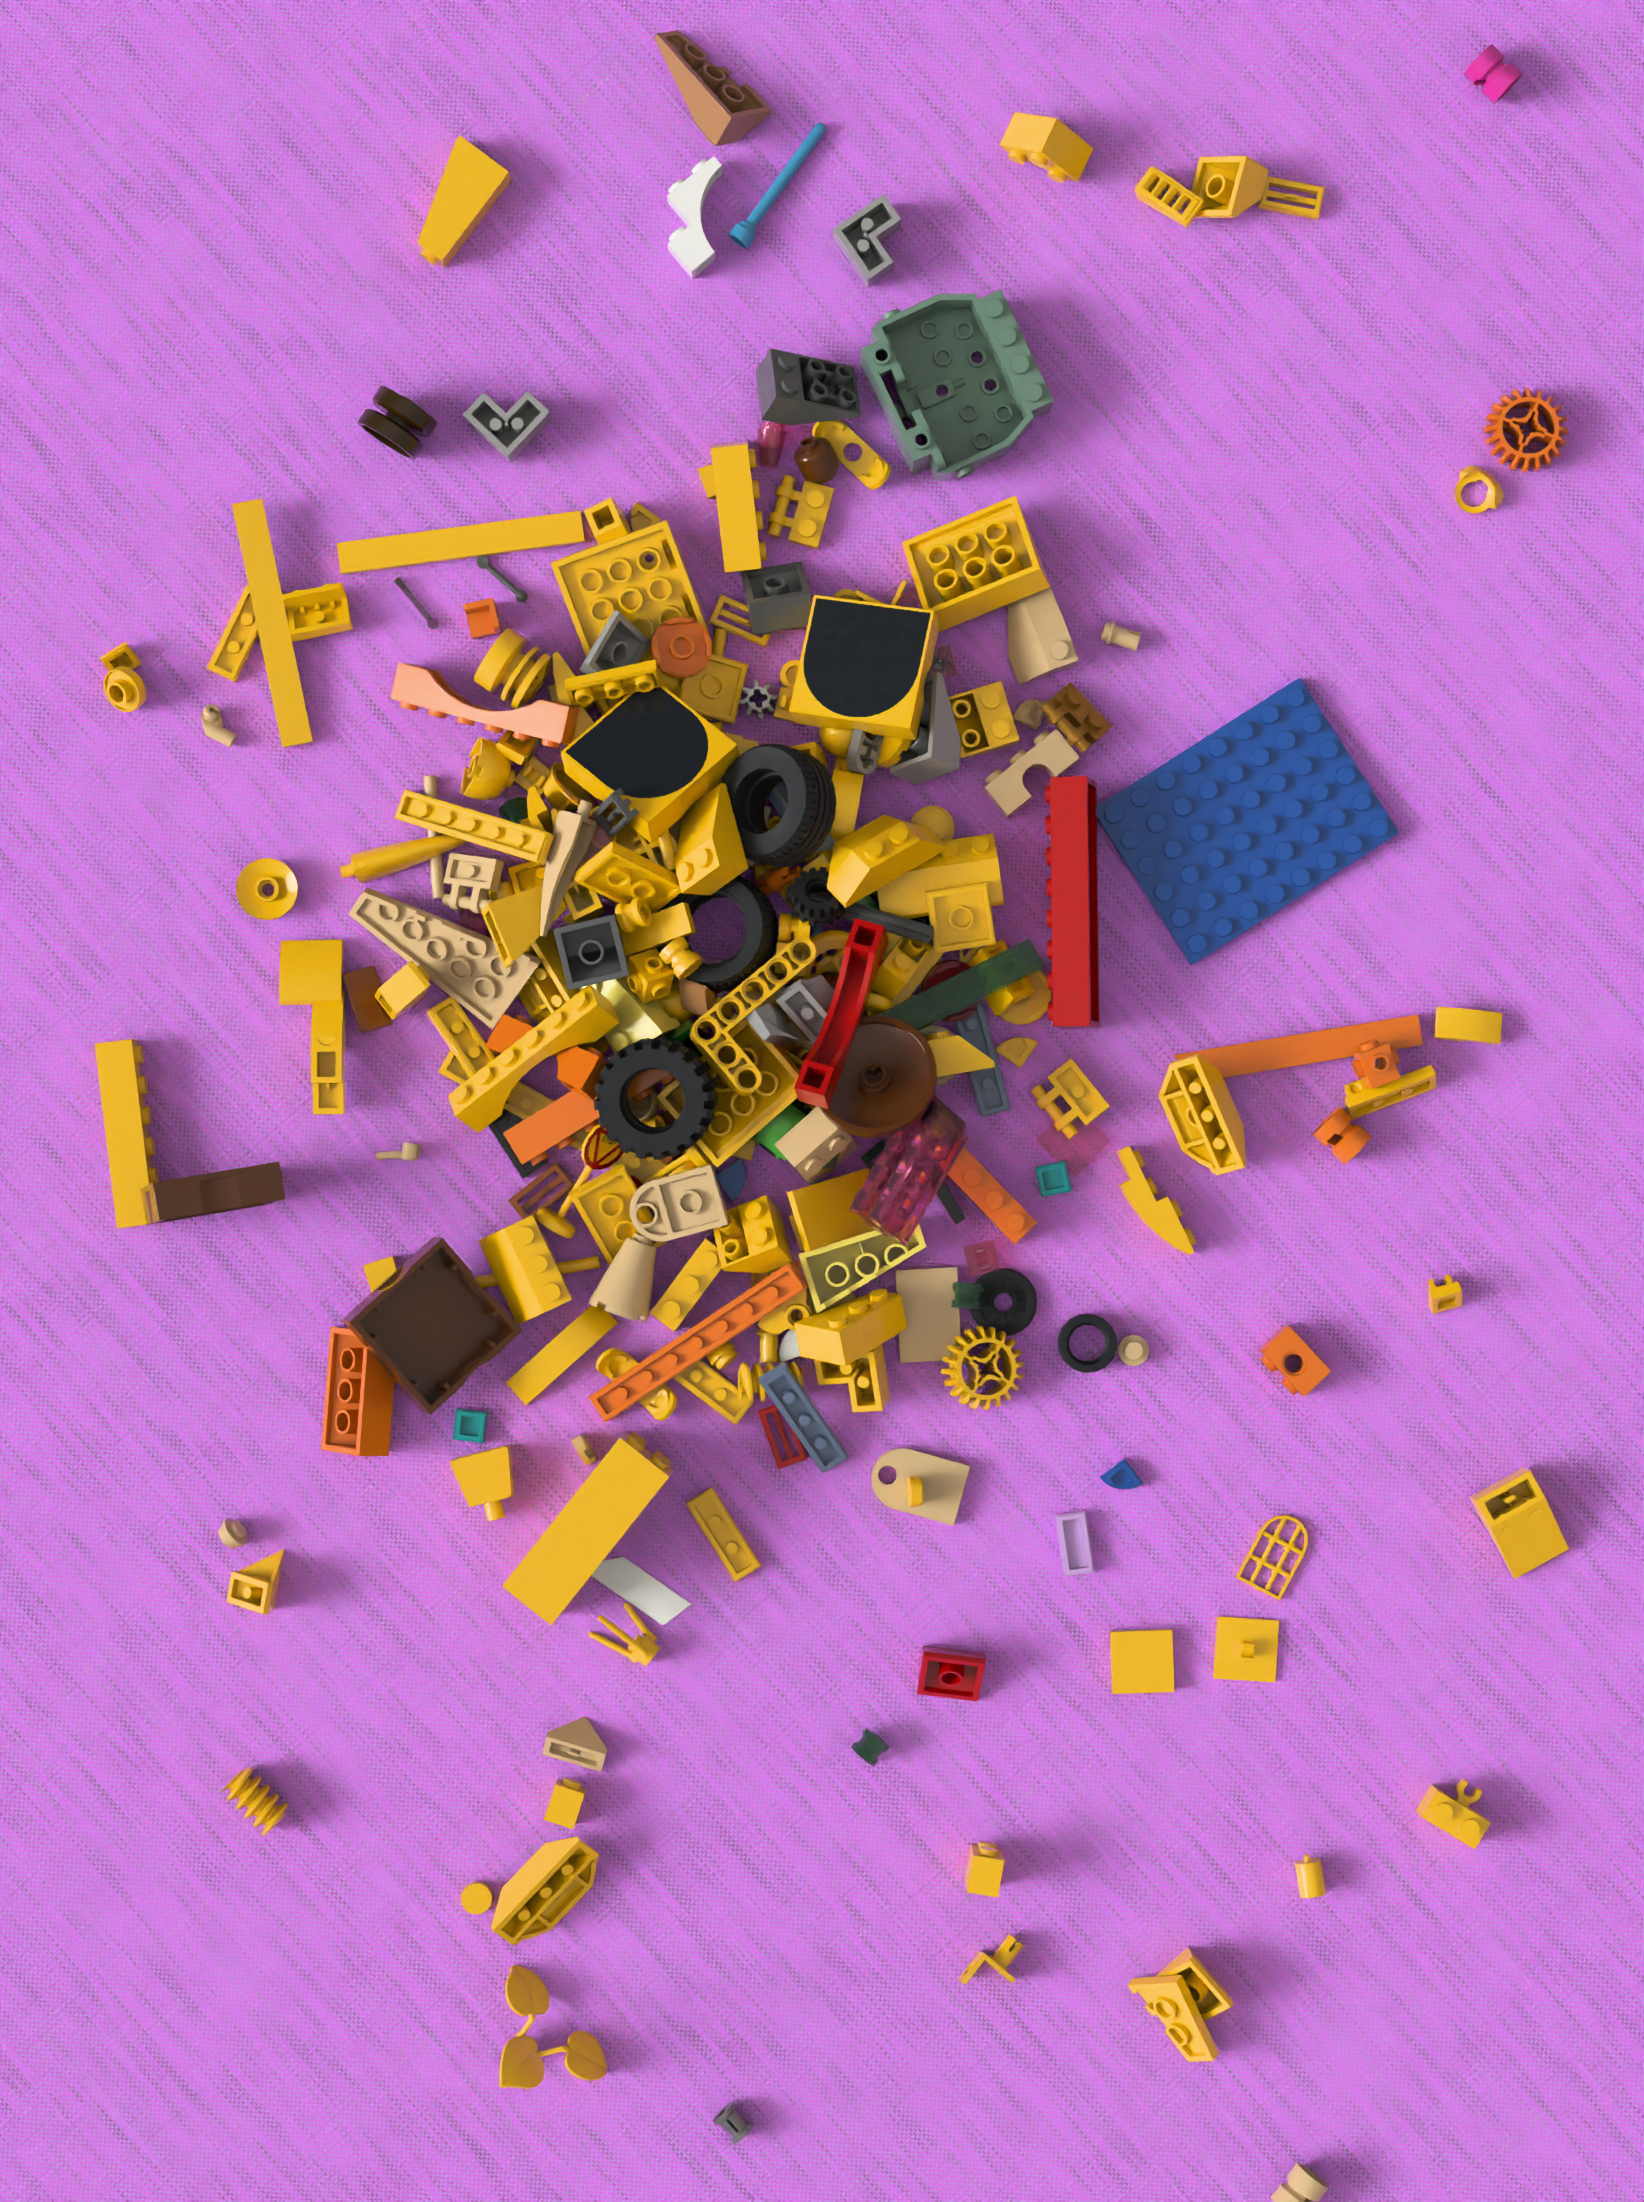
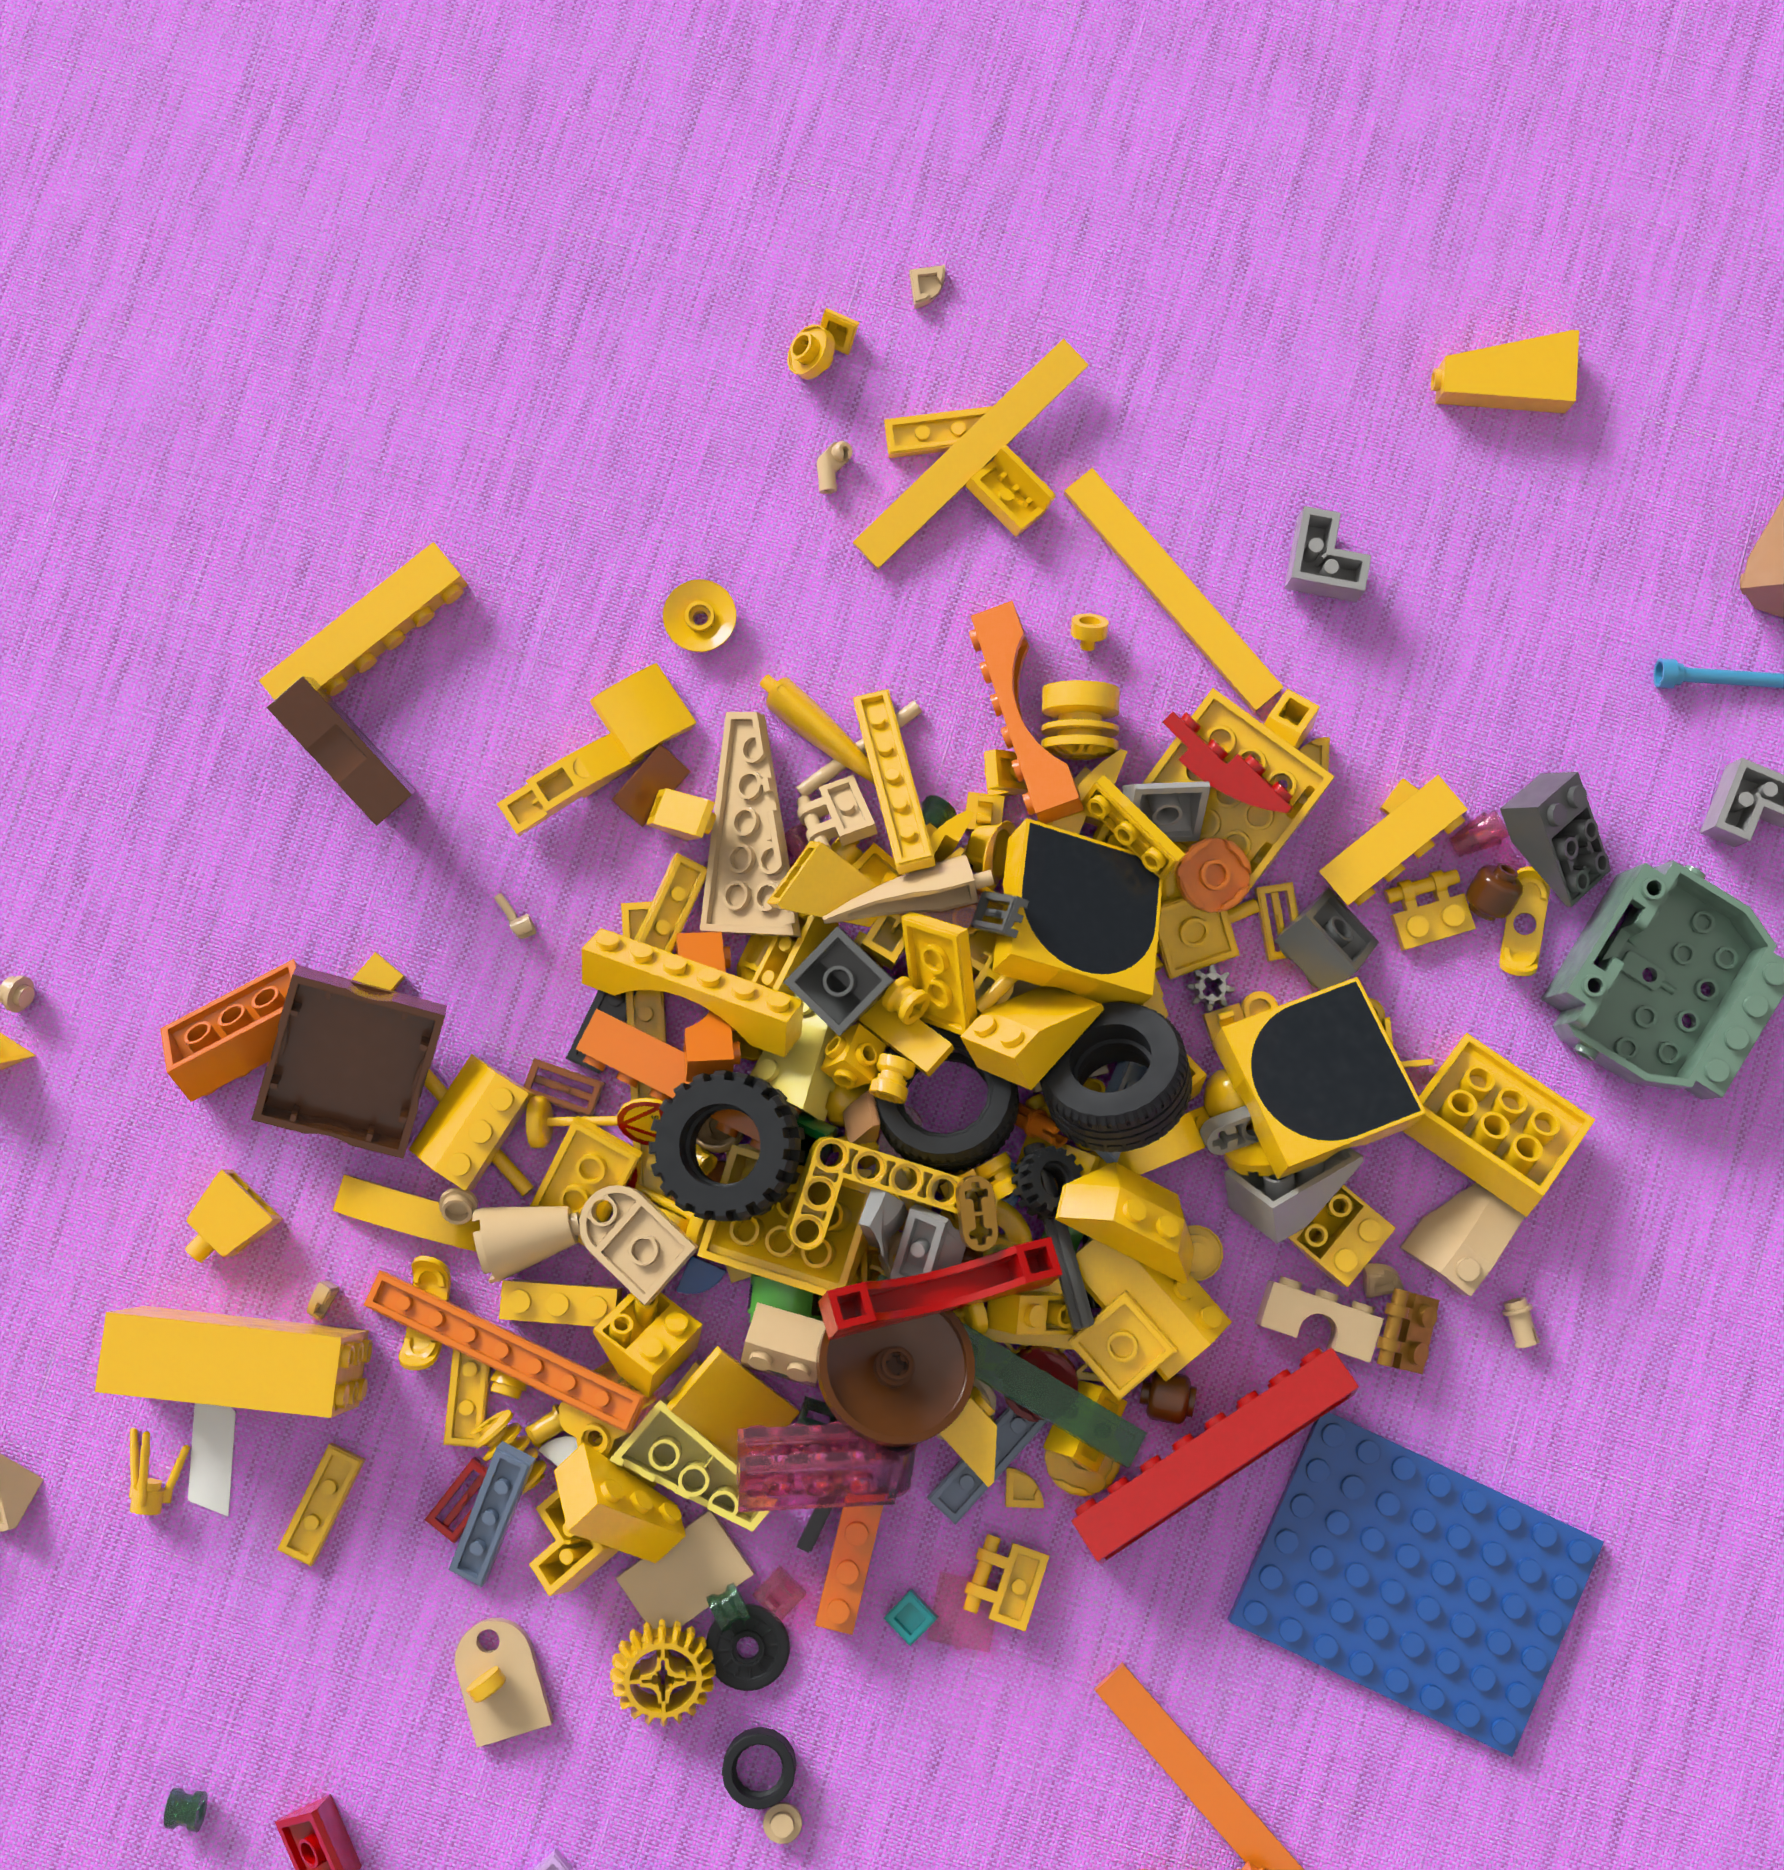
camera: 60 degrees right, 5 degrees down
(125, 574) = (926, 284): none -> tan tile
(399, 419) = (1252, 448): dark brown wheel -> none
(432, 623) = (1074, 610): clear smoke hinge -> none
(452, 620) = (1089, 629): none -> yellow tile
(470, 1425) = (276, 1166): teal tile -> none
(483, 563) = (1167, 624): dark grey hinge -> none
(483, 618) = (1112, 658): orange panel -> none
(487, 772) = (958, 760): yellow cylinder -> none
(578, 1313) = (457, 1205): none -> tan plate
(625, 588) = (1238, 778): none -> red slope
(687, 199) = (1665, 594): white arch -> none
(811, 951) = (986, 1213): none -> pearl gold beam
(943, 662) = (1374, 1155): clear pink tile -> none
(1018, 909) = (1170, 1399): none -> reddish brown head
(1158, 1214) = (943, 1755): yellow slope -> none
(1203, 1114) = (1078, 1741): yellow wedge -> none

